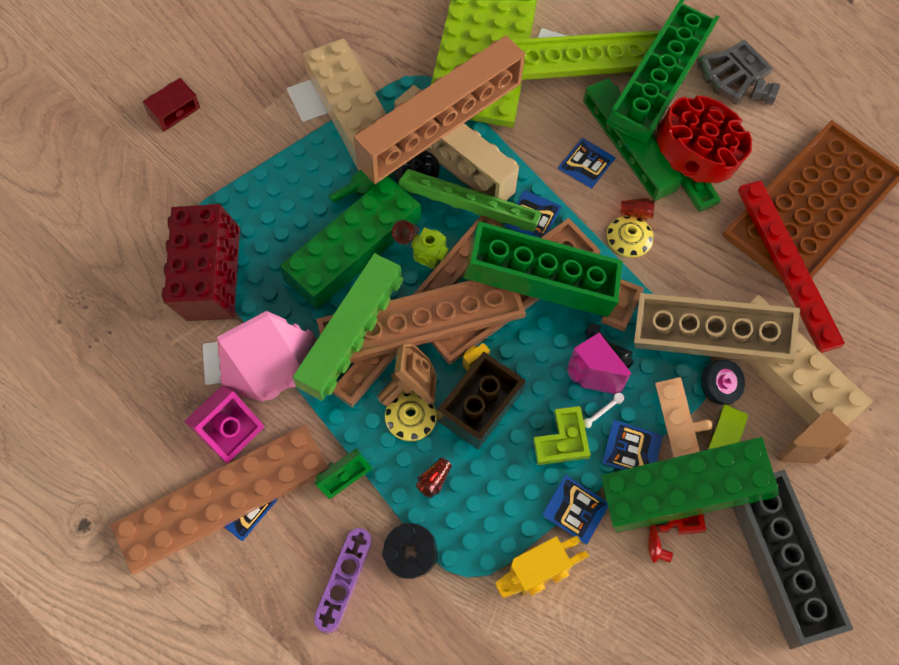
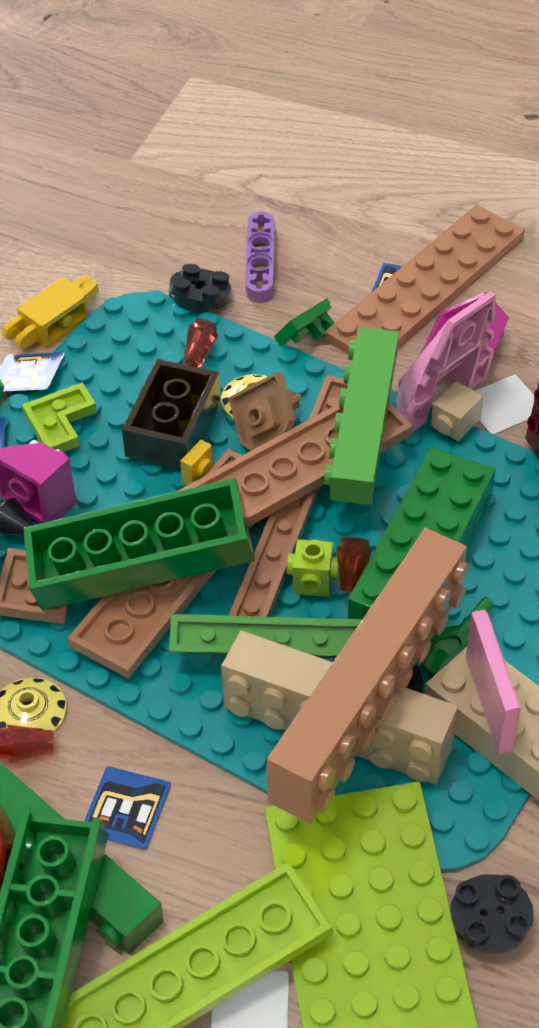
camera: 165 degrees right, 15 degrees down
(371, 92) = (492, 681): none -> bright pink tile
(420, 37) = (487, 895): none -> black plate
(549, 213) = (183, 681): sticker -> none

